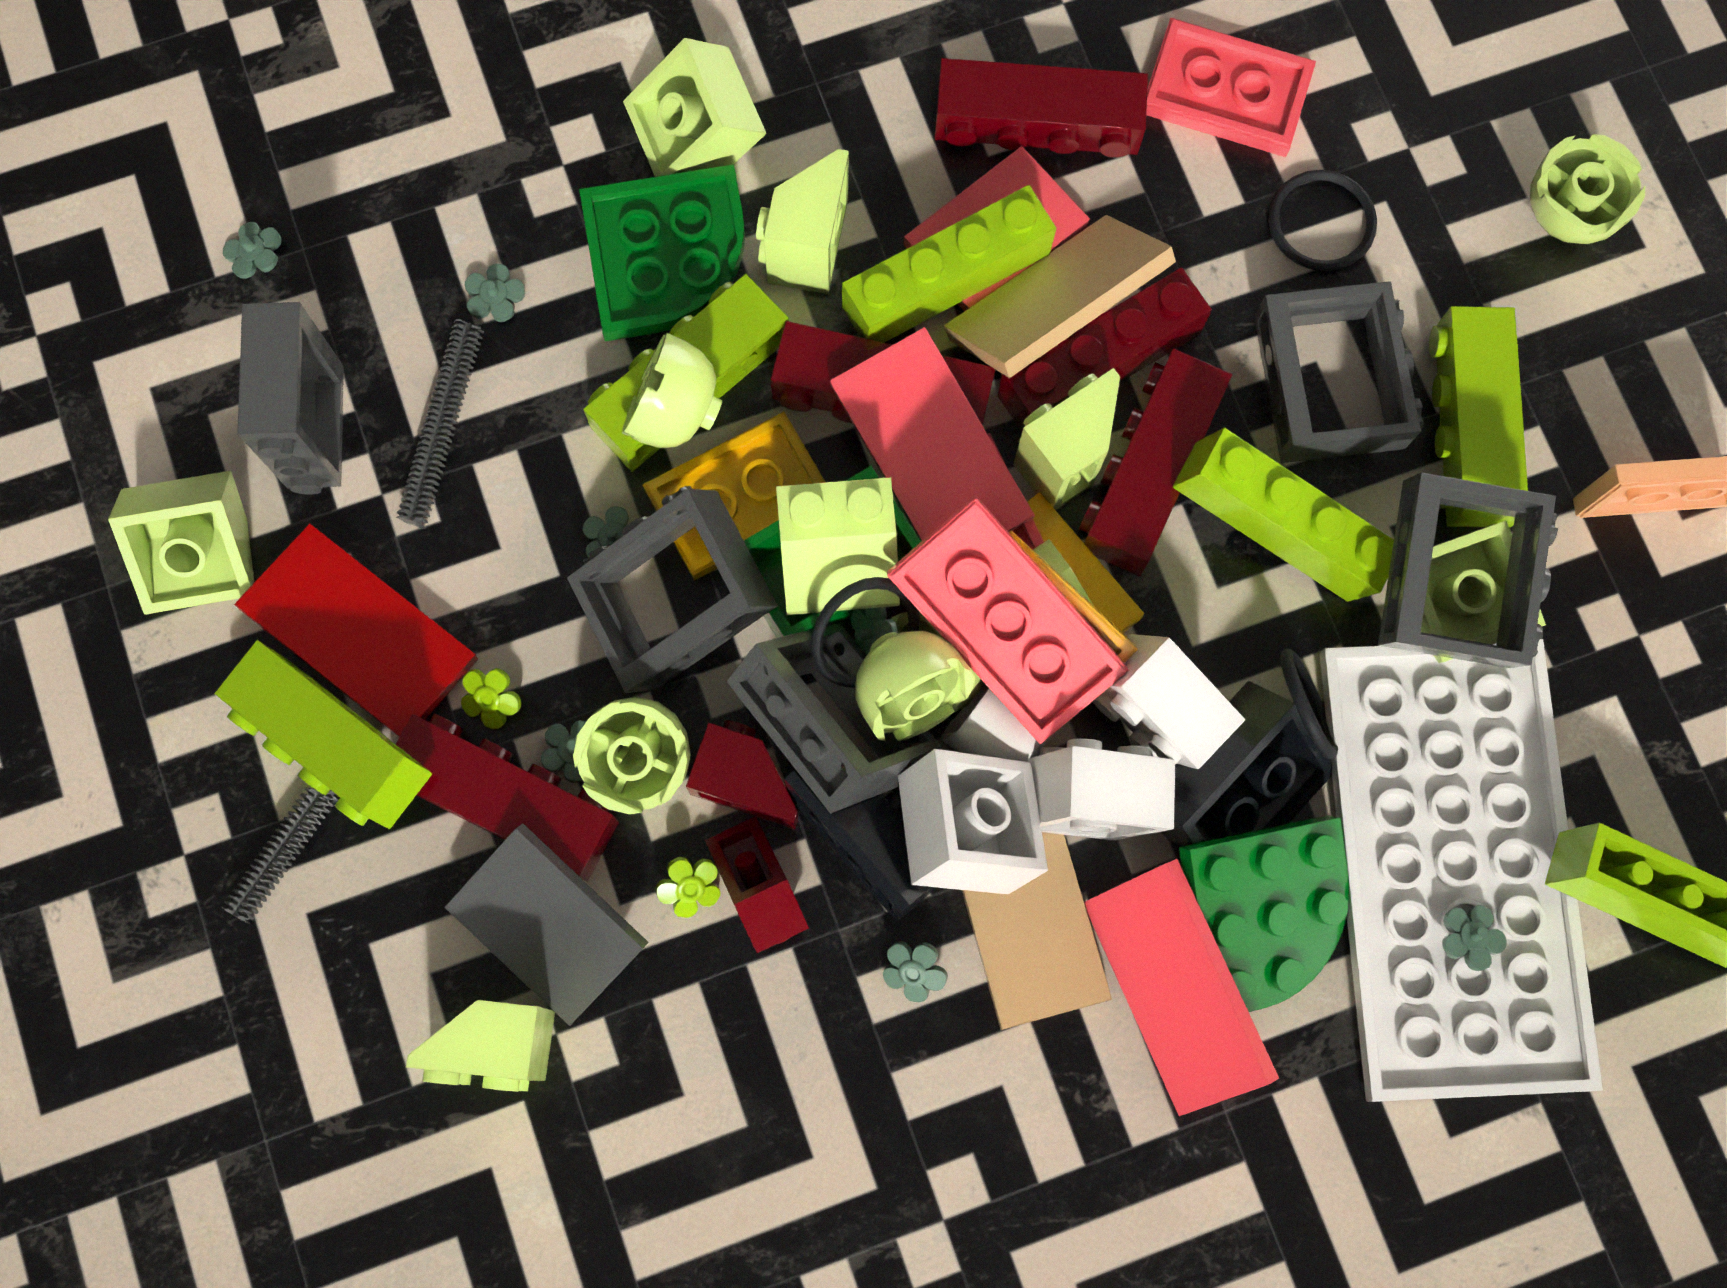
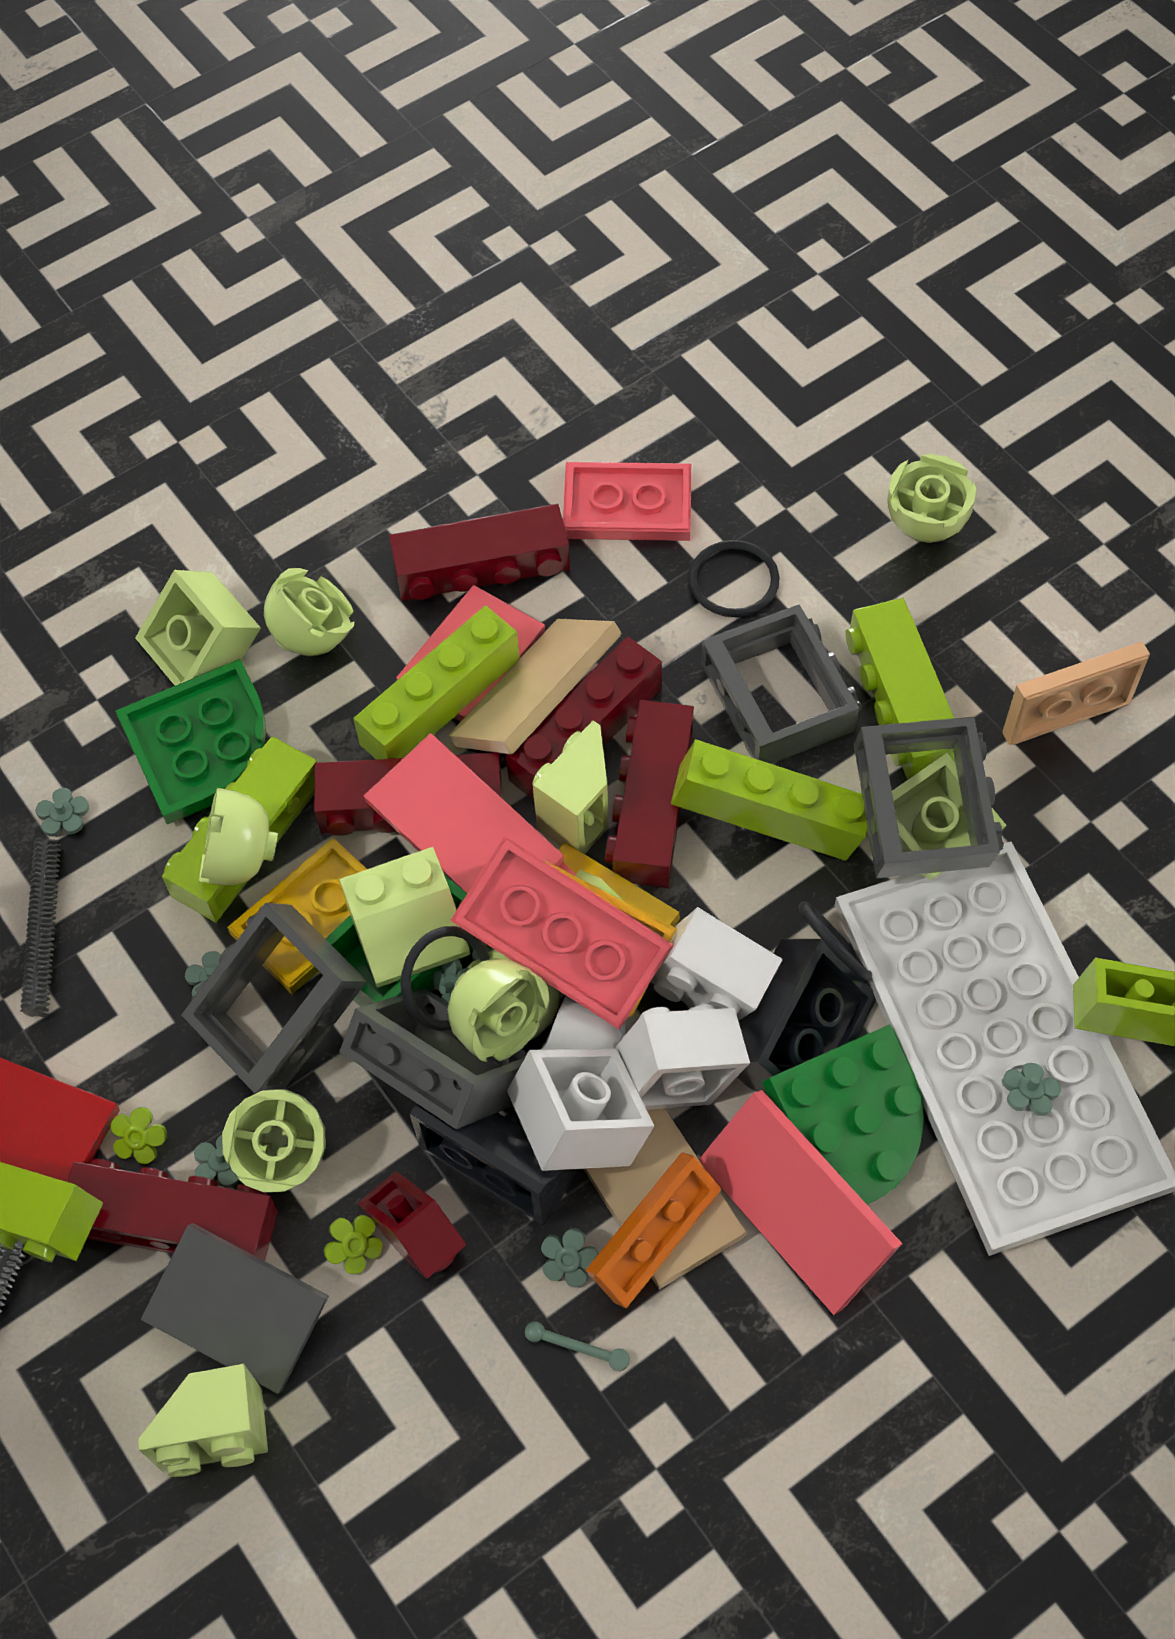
camera: 10 degrees left, 15 degrees down
(740, 775) = (374, 1138): dark red slope -> none
(805, 225) = (311, 687): yellowish green slope -> none
(819, 120) = (306, 614): none -> yellowish green cylinder
(935, 1093) = (617, 1359): none -> sand green hinge
(1014, 973) = (653, 1229): none -> orange plate

